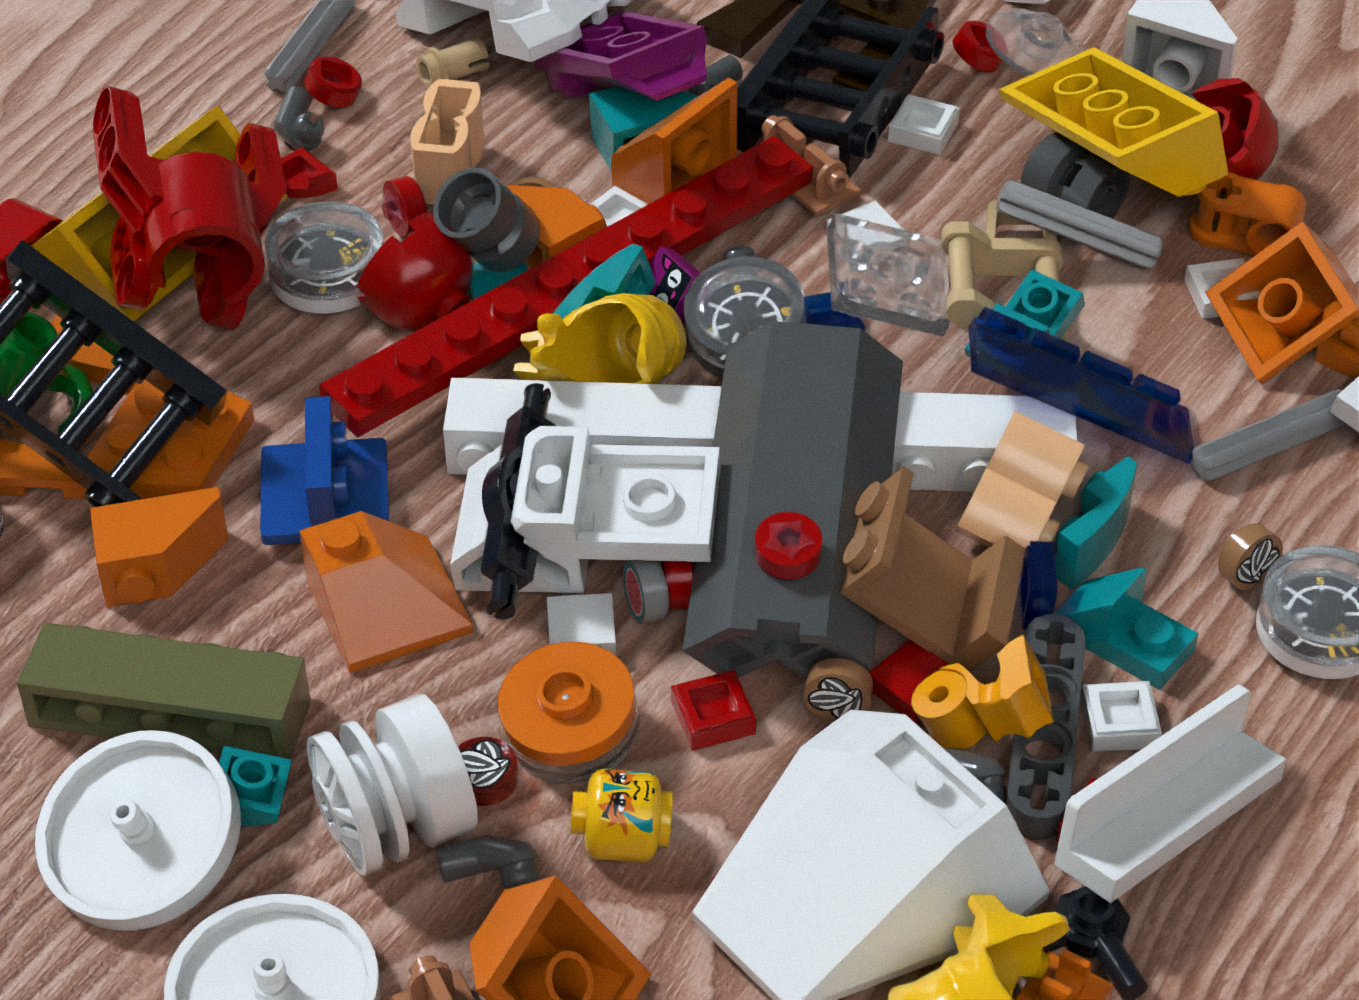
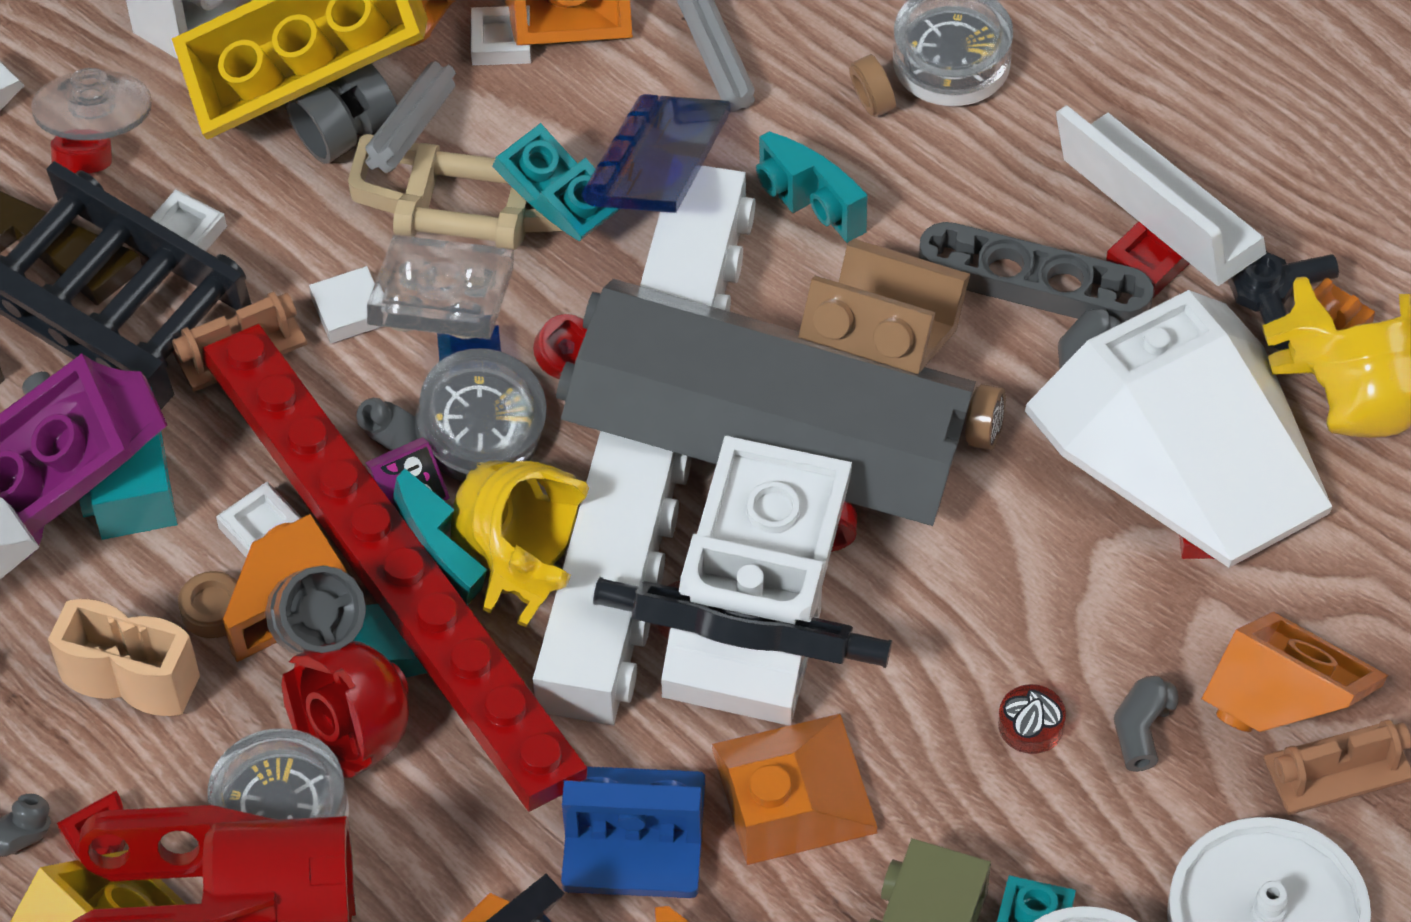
camera: 80 degrees left, 10 degrees up
(402, 203) = (203, 719): red tile -> none
(406, 778) = (1084, 769): white wheel -> none
(569, 711) = (983, 632): orange piece -> none
(582, 619) = (865, 609): white tile -> none
(622, 816) = (1113, 601): yellow head -> none
(645, 590) = (848, 555): light grey tile -> none
(679, 145) = (213, 439): orange slope -> none
(713, 710) = (979, 525): red tile -> none
(788, 545) = (874, 394): red tile -> none
(901, 674) = (974, 357): red tile -> none
(963, 710) = (1024, 322): light orange leg -> none
(1023, 485) = (783, 225): light nougat brick -> none
(1037, 582) = (889, 232): clear blue tile -> none
(1120, 715) = (1031, 216): white tile -> none
(1127, 630) = (928, 194): teal slope -> none

